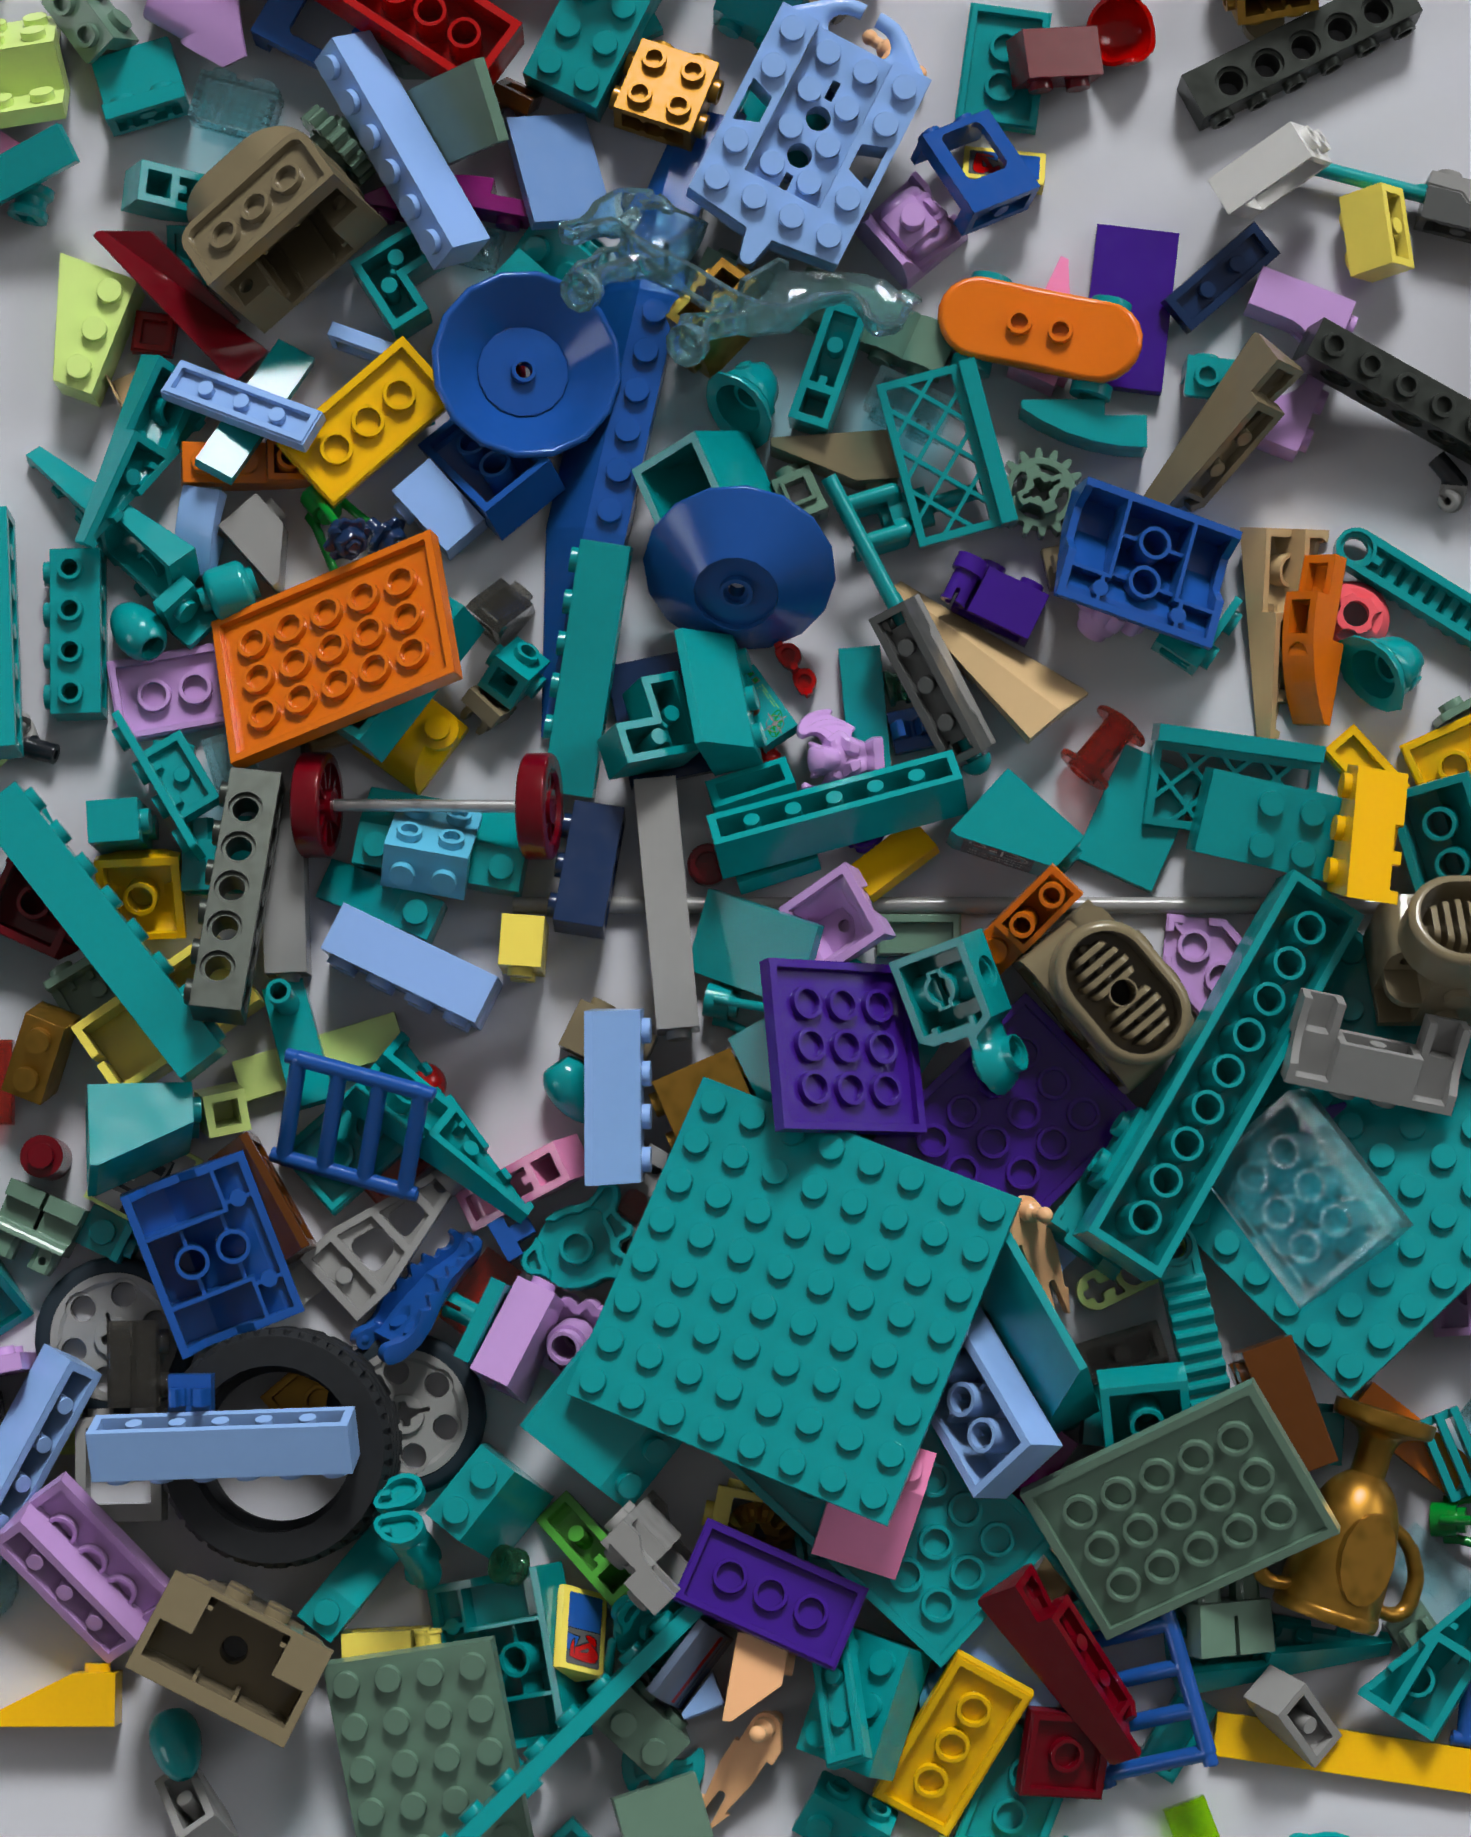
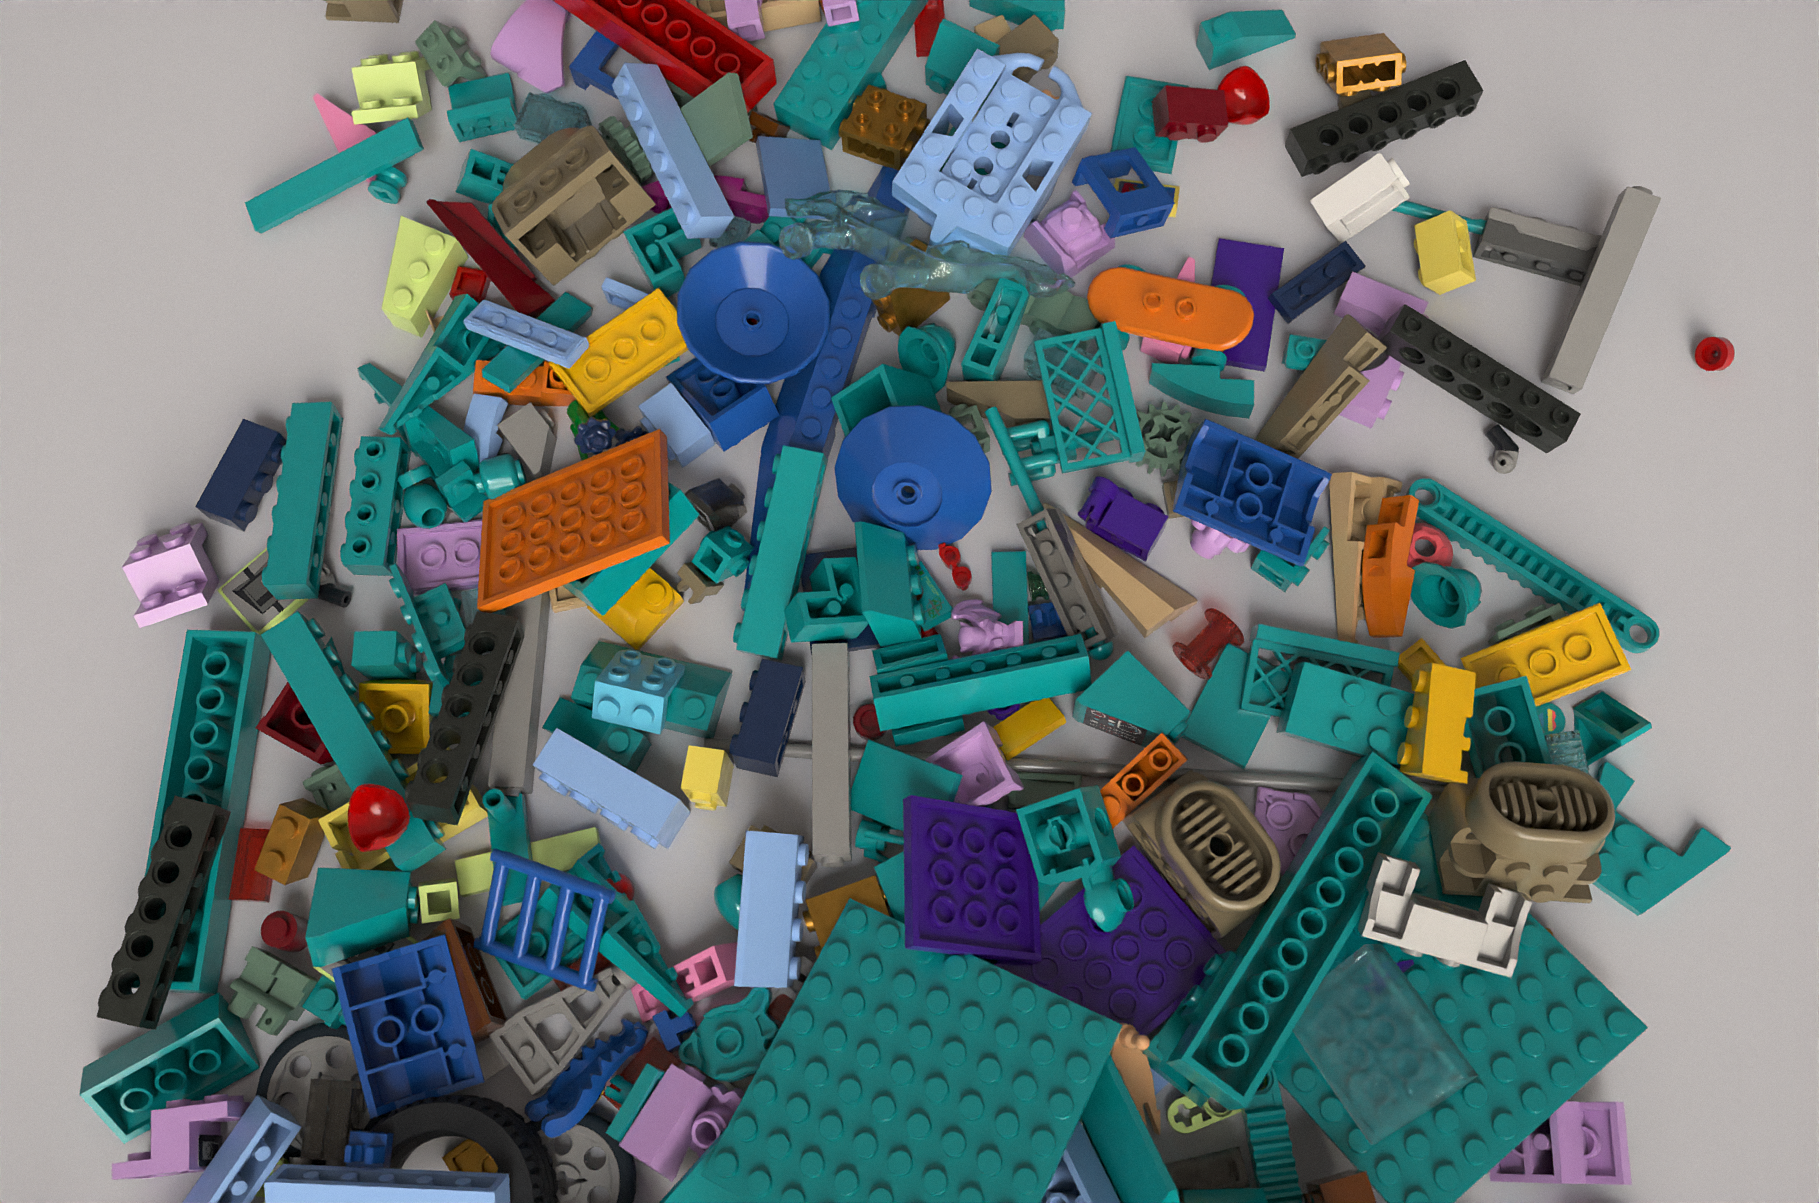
camera: 10 degrees right, 10 degrees down
(122, 595) = (415, 476): none -> teal tile
(153, 1024) = (376, 817): none -> red helmet
(319, 805) = (549, 652): dark red axle -> none

